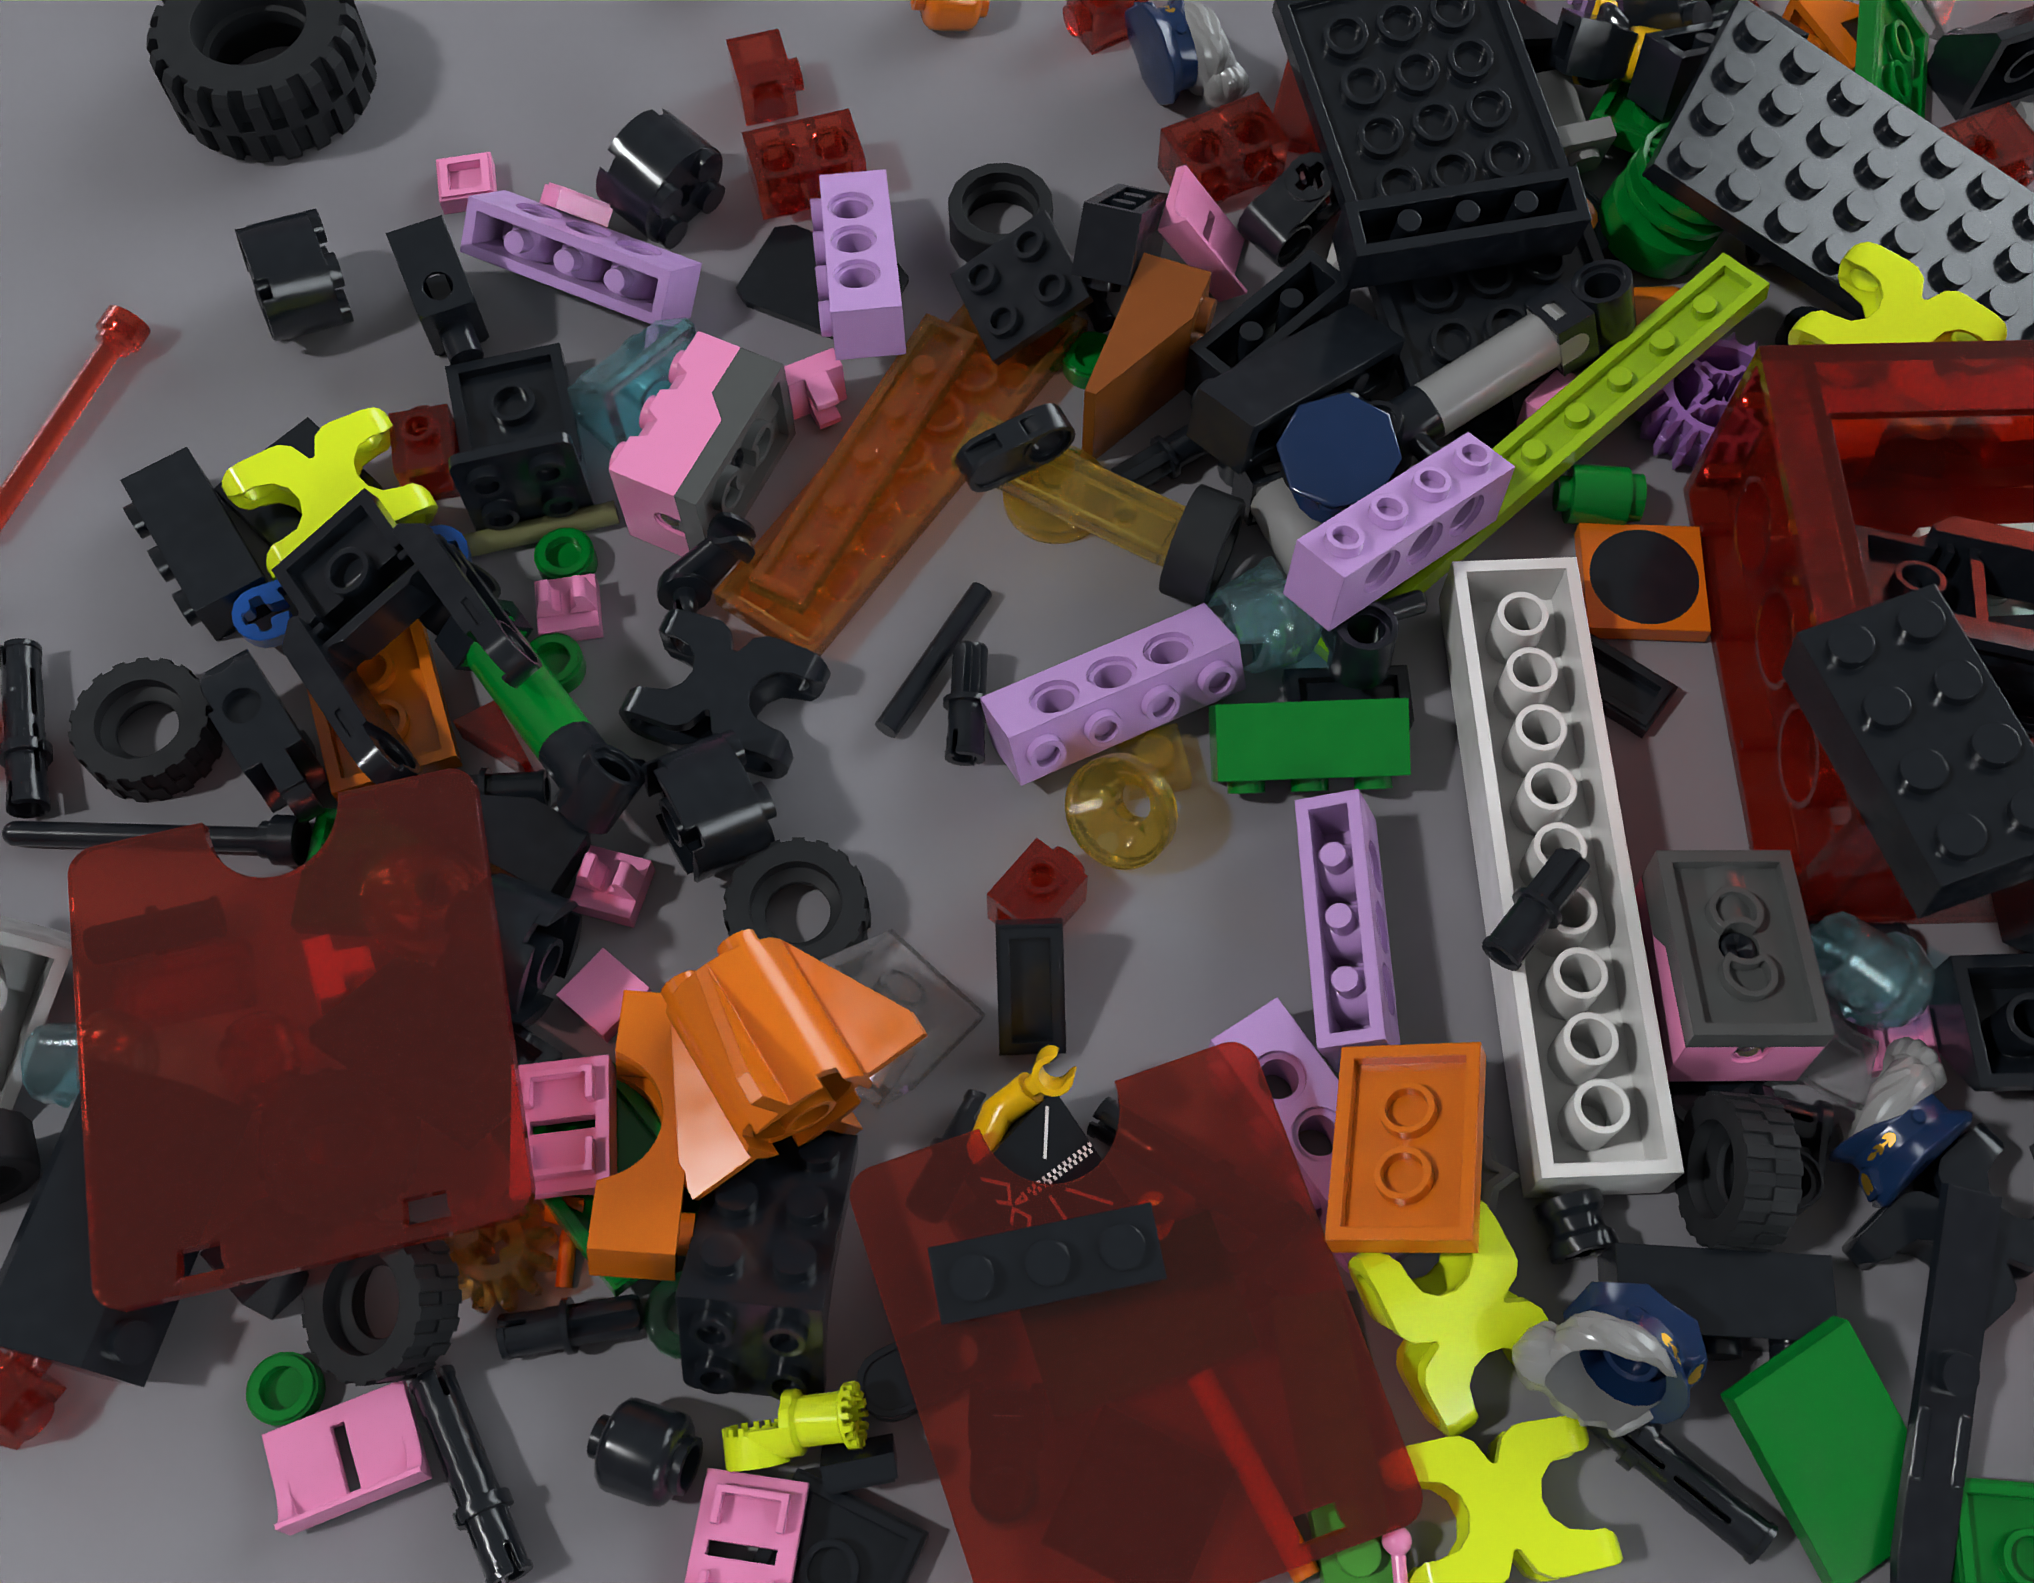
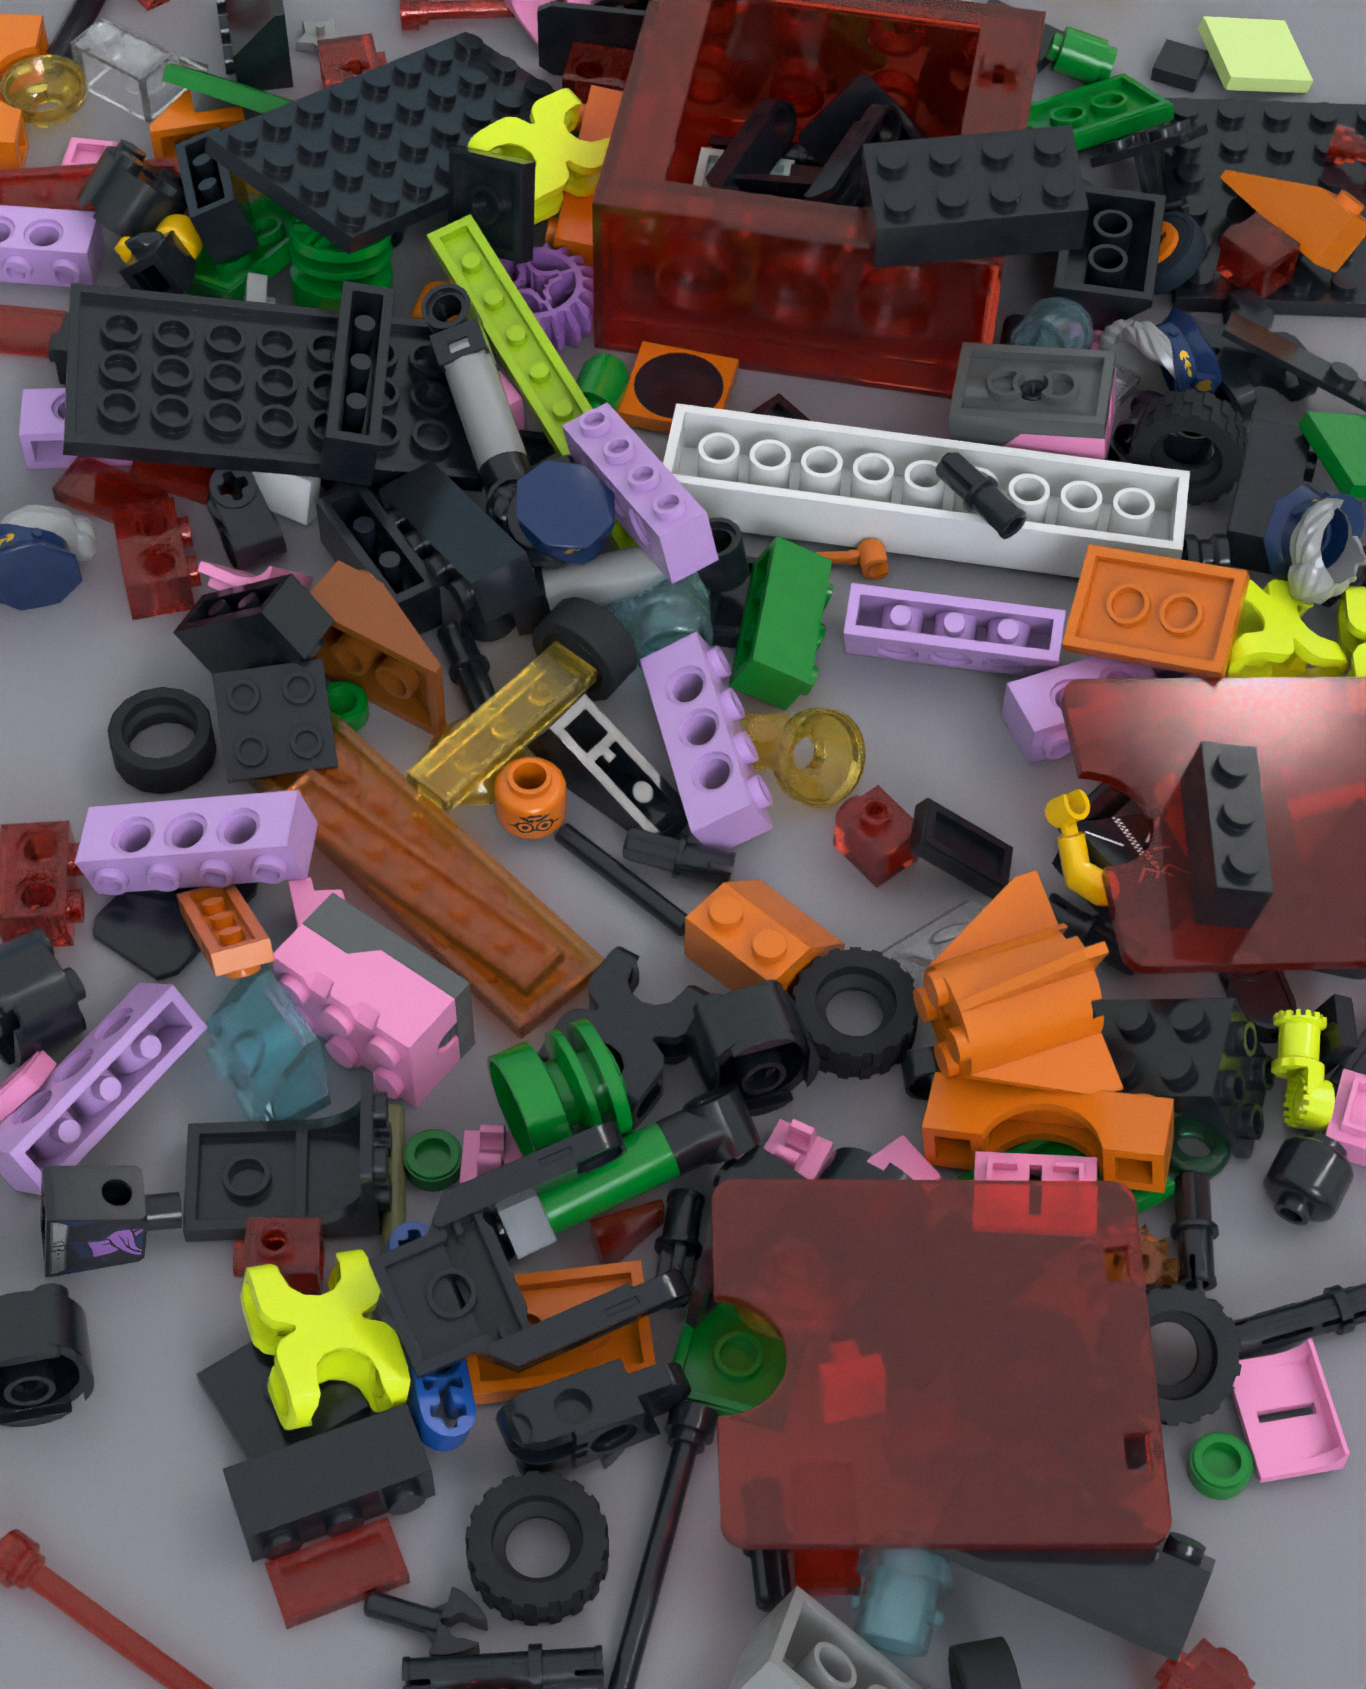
camera: 80 degrees left, 10 degrees down
(81, 662) = (431, 1620): none -> black bar
(126, 577) = (337, 1572): none -> clear red tile
(596, 623) = (571, 1090): none -> green wheel
(693, 577) = (489, 1014): black piece -> none
(728, 292) = (226, 930): none -> orange plate
(873, 800) = (753, 936): none -> orange slope
(997, 540) = (530, 797): none -> orange head
(1015, 447) = (469, 740): black piece -> none
(1056, 604) = (609, 770): none -> black slope
(1453, 830) = (869, 554): none -> orange hand
(1799, 296) = (498, 196): none -> black tile

